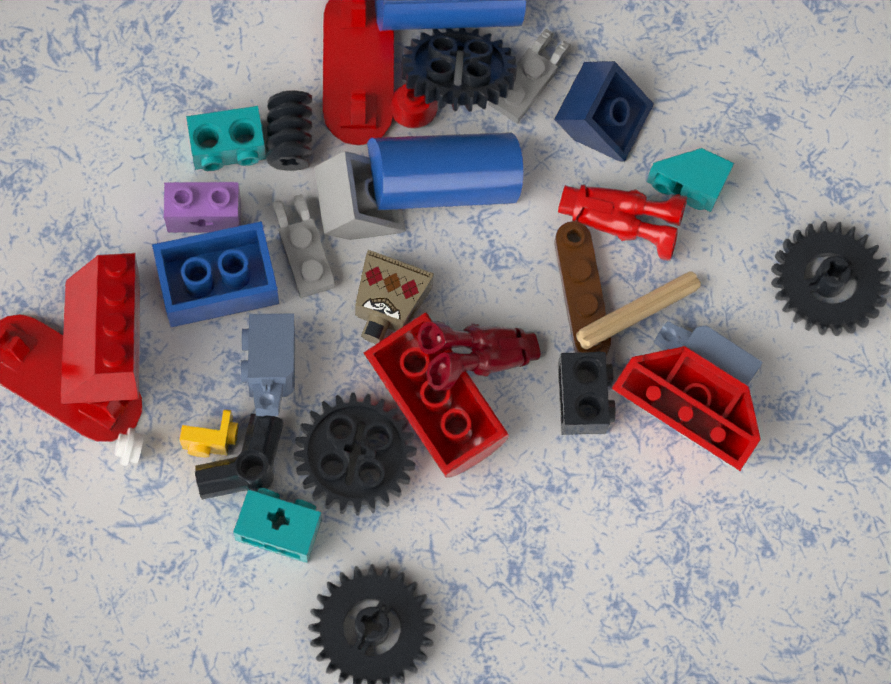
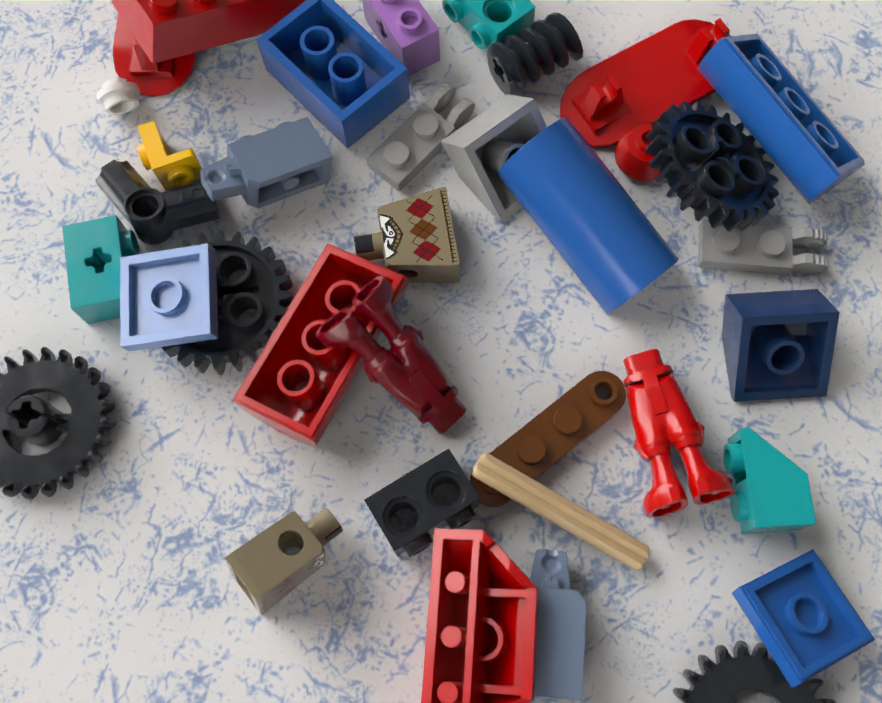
camera: 70 degrees right, 0 degrees up
(344, 478) = (168, 297): none -> plate
(573, 501) = (271, 575): none -> dark tan torso
(782, 208) = (802, 617): none -> blue plate

